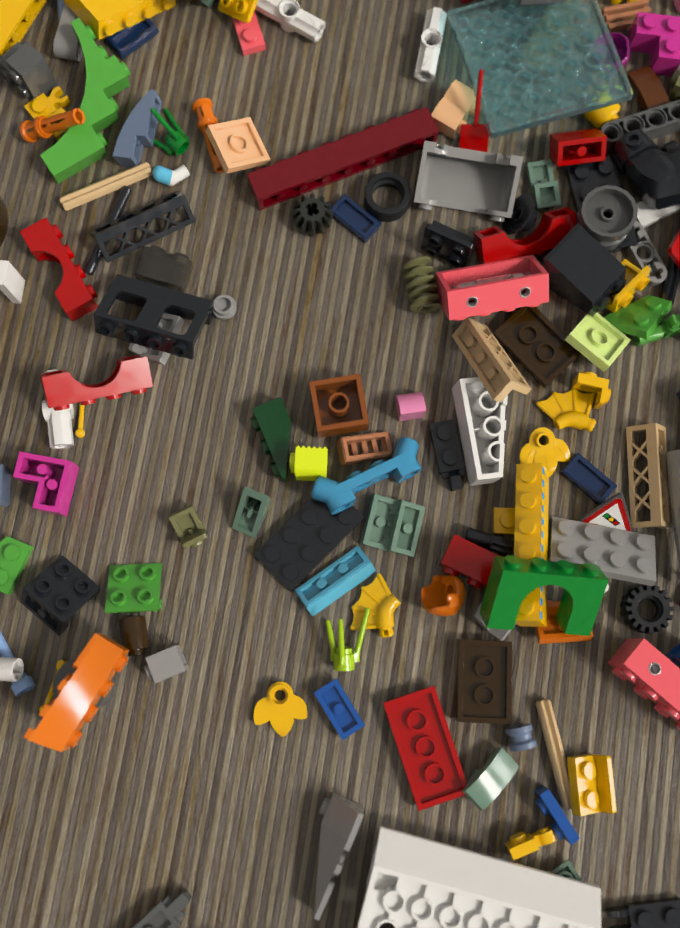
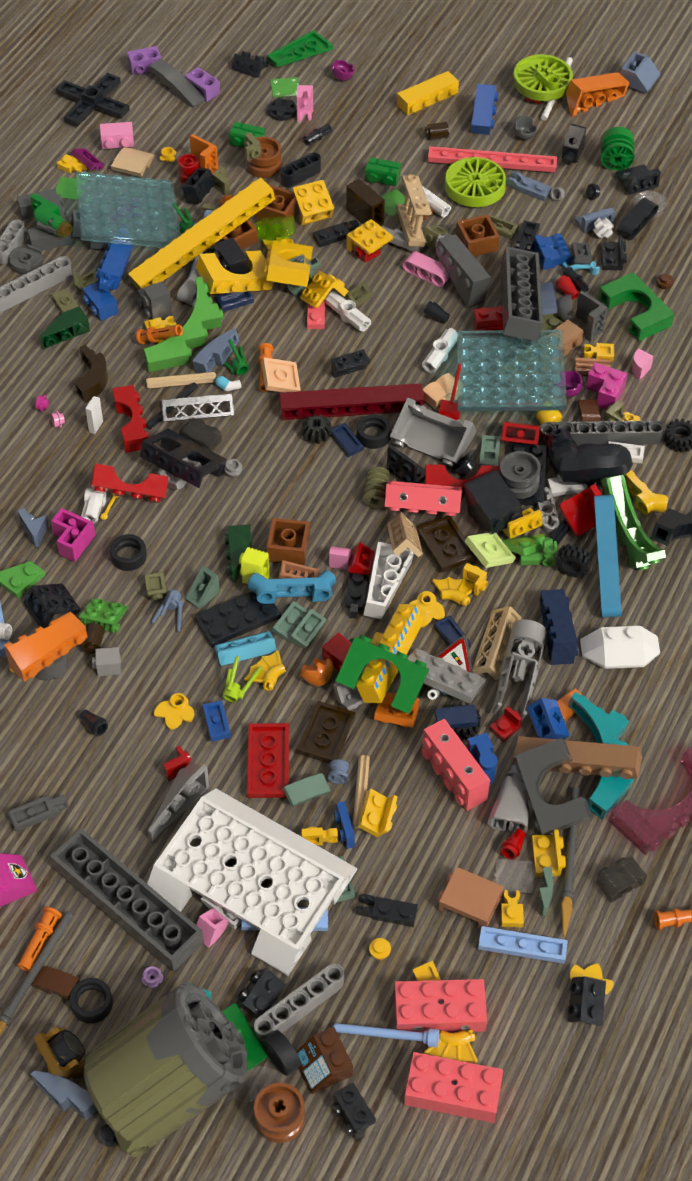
camera: 20 degrees right, 25 degrees down
(115, 473) = (128, 564): none -> black tyre
(181, 763) = (95, 724): none -> black cone
(216, 543) = (171, 602): none -> sand blue plant
(310, 797) = (174, 765): none -> red bracket
(322, 99) = (349, 363): none -> black bracket
(439, 404) = (361, 559): none -> red slope
(645, 615) = (458, 716): none -> dark blue tile

